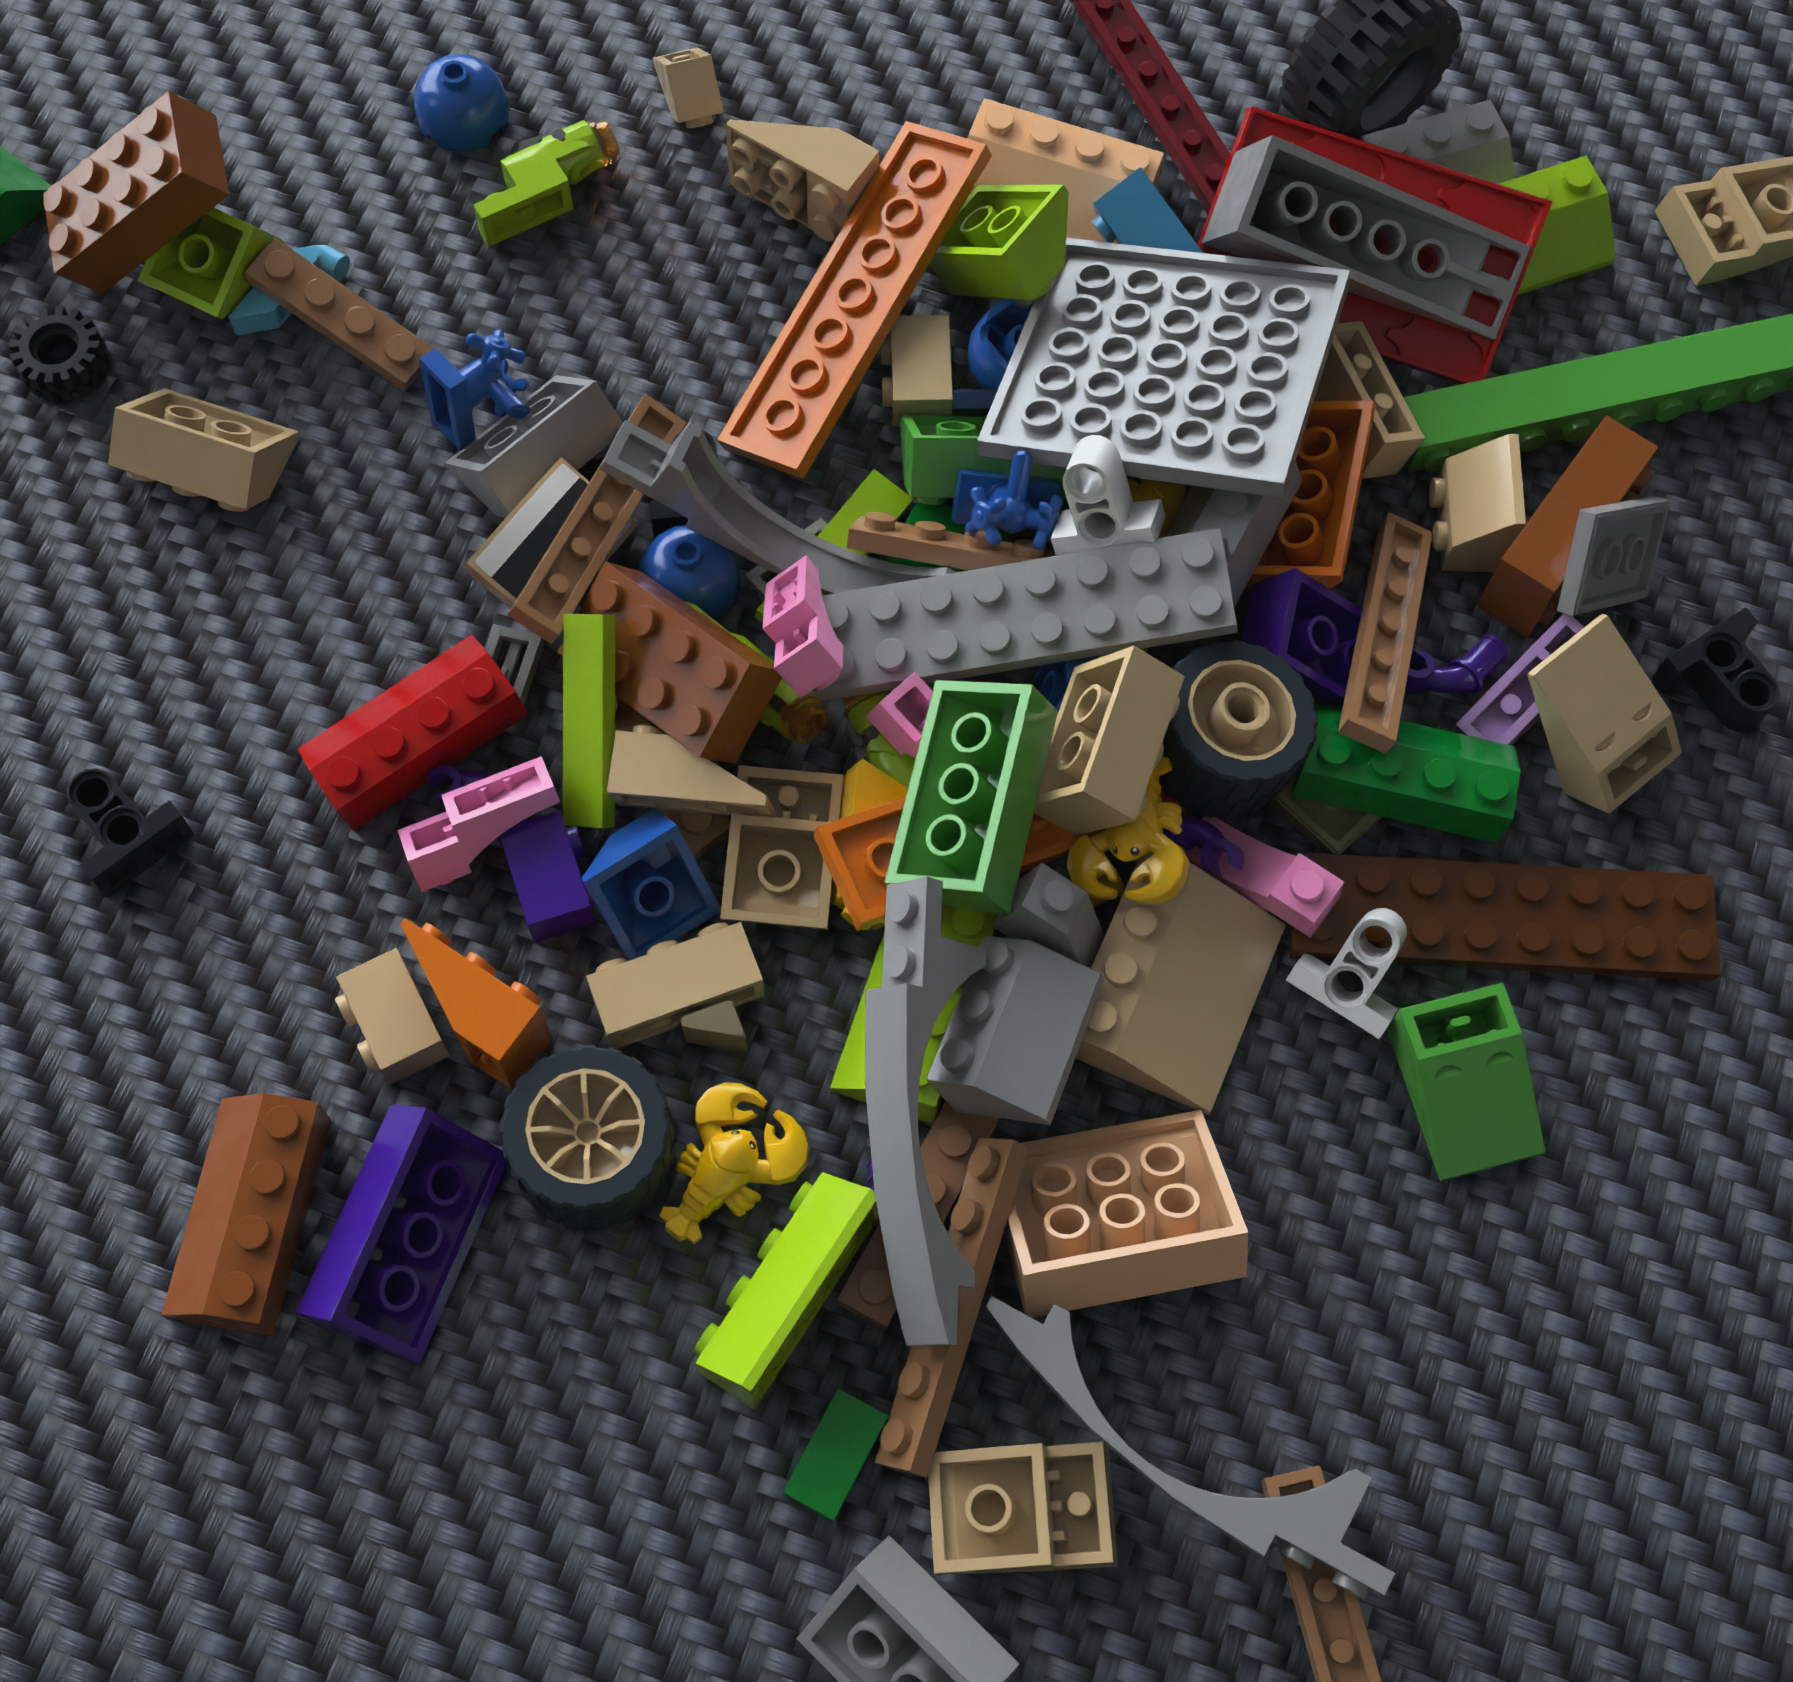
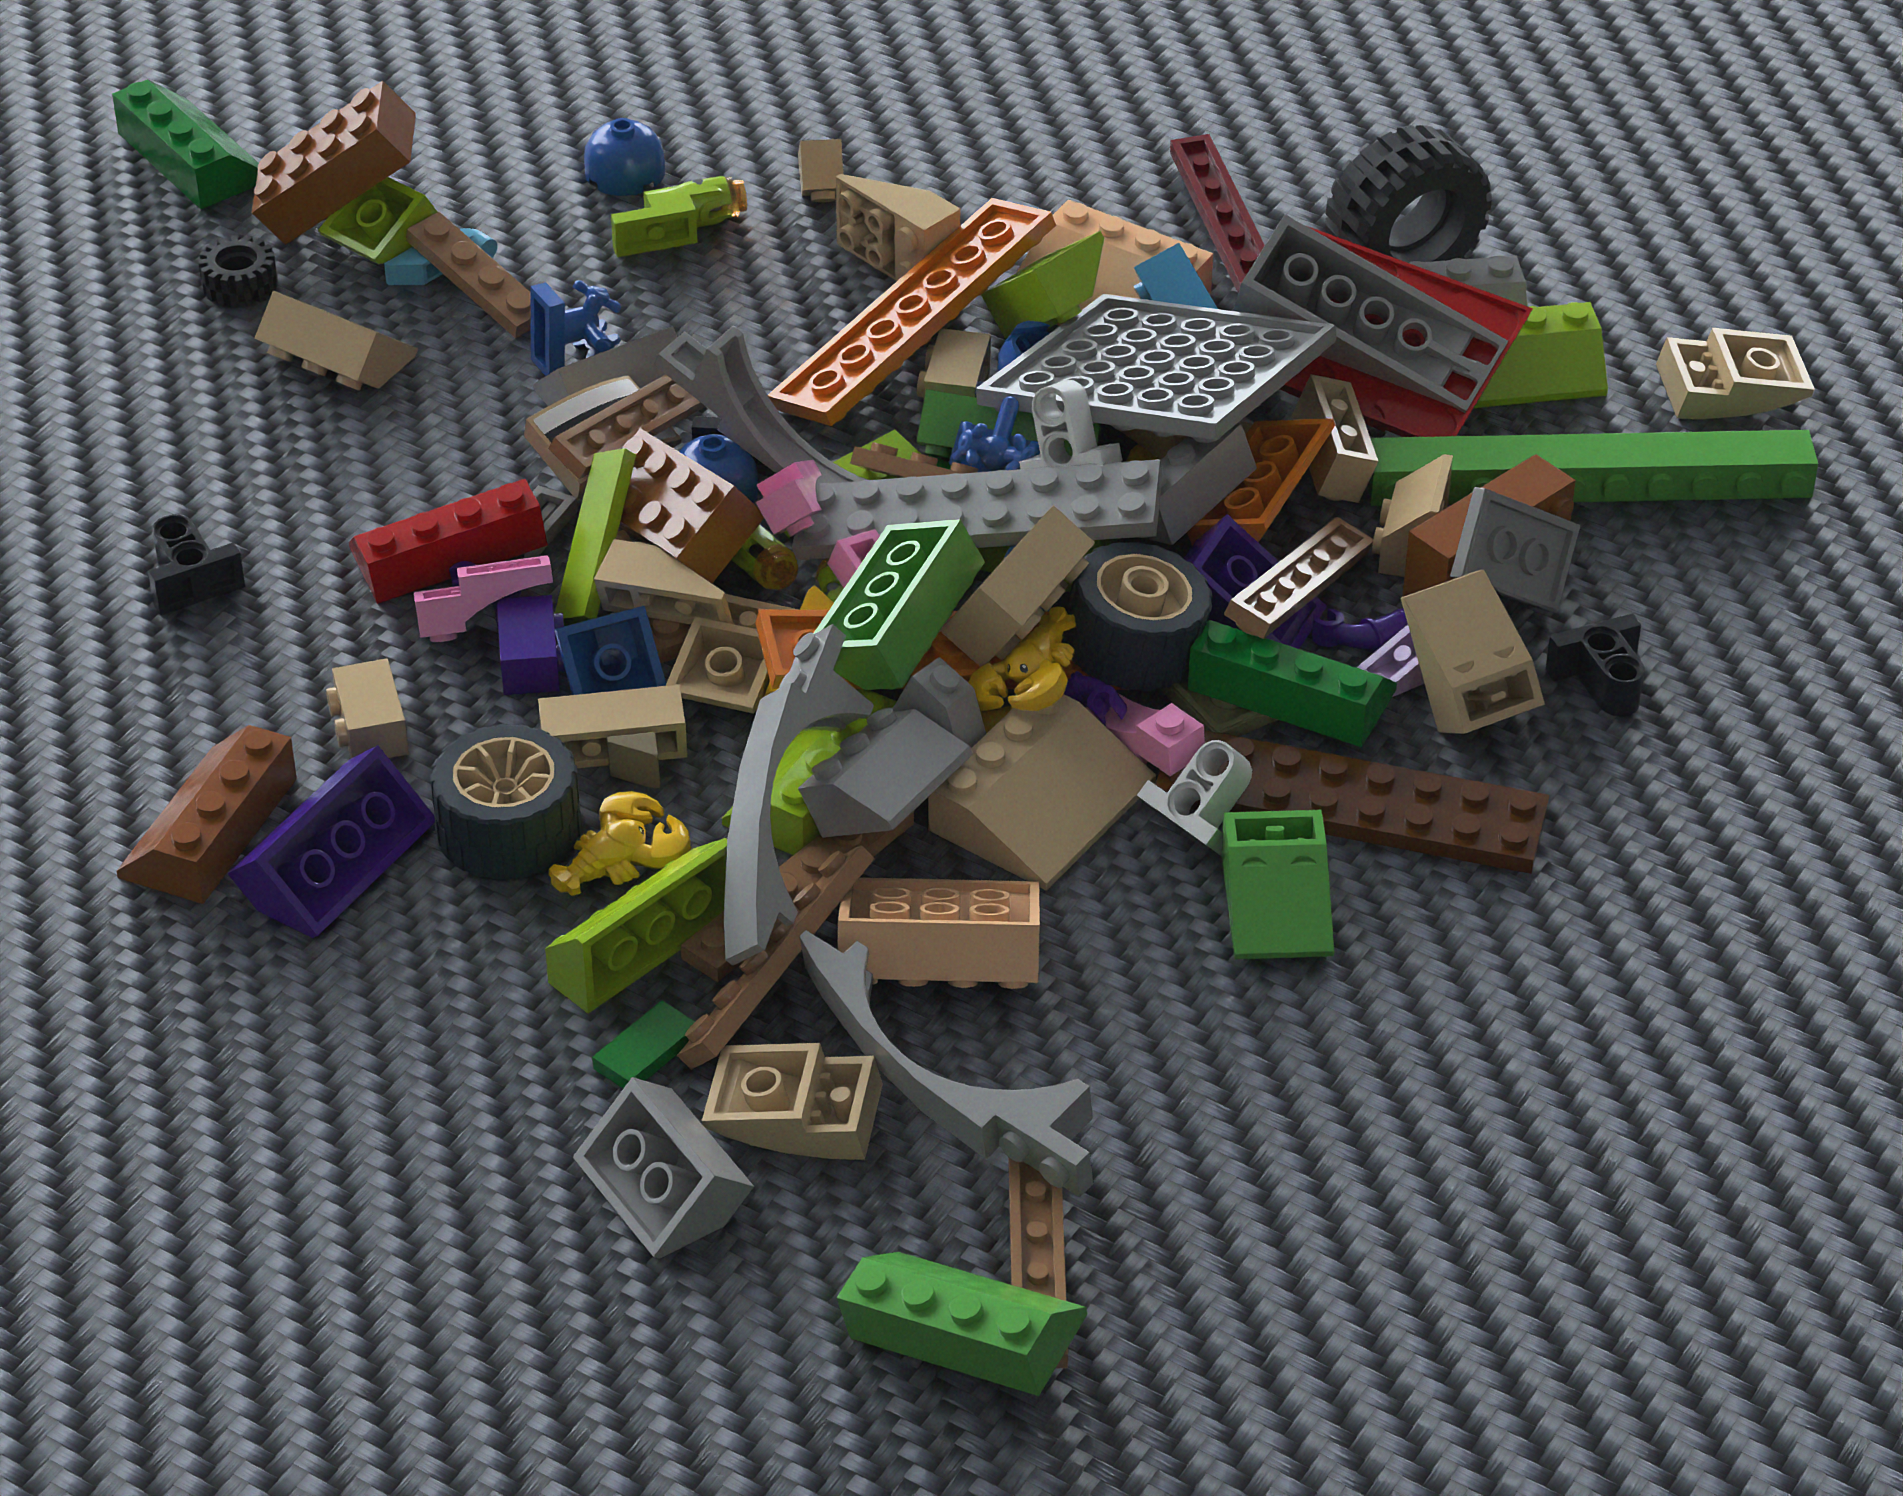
camera: 15 degrees right, 25 degrees down
(494, 1022) = (440, 693): orange slope -> none

